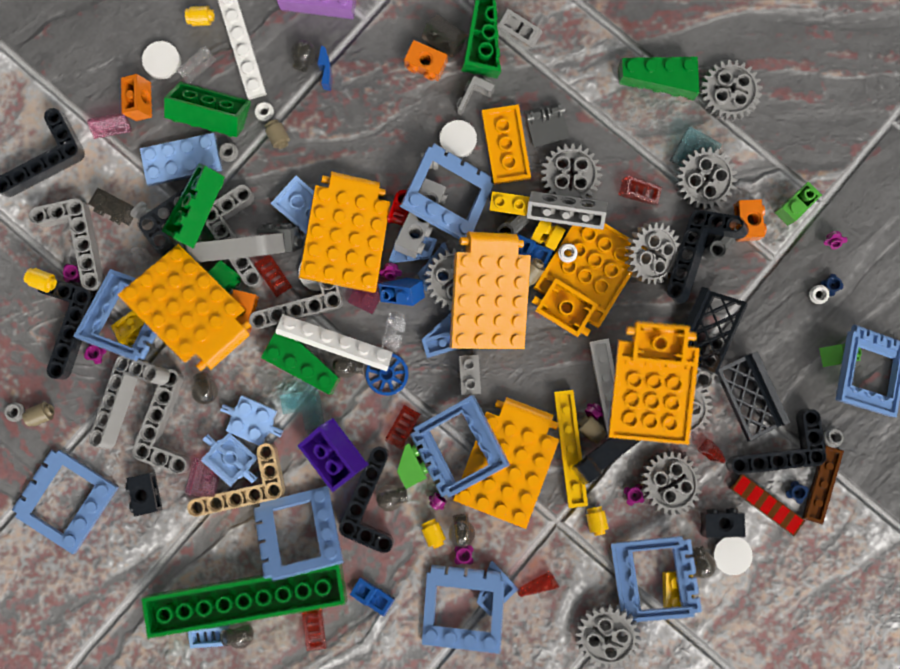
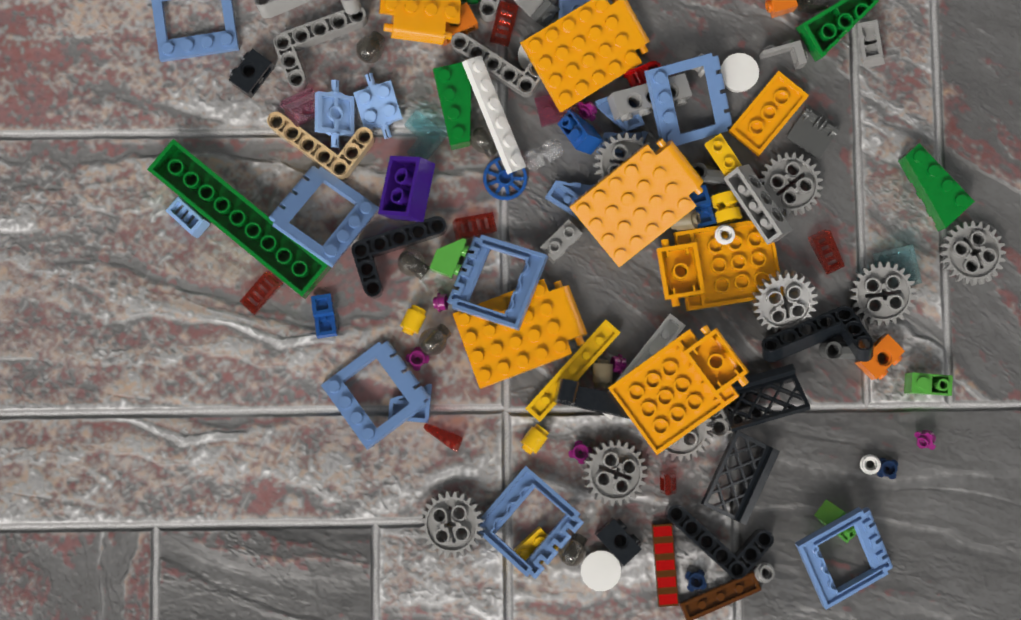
camera: 45 degrees right, 0 degrees up
(237, 635) = (207, 237): clear smoke piece -> none

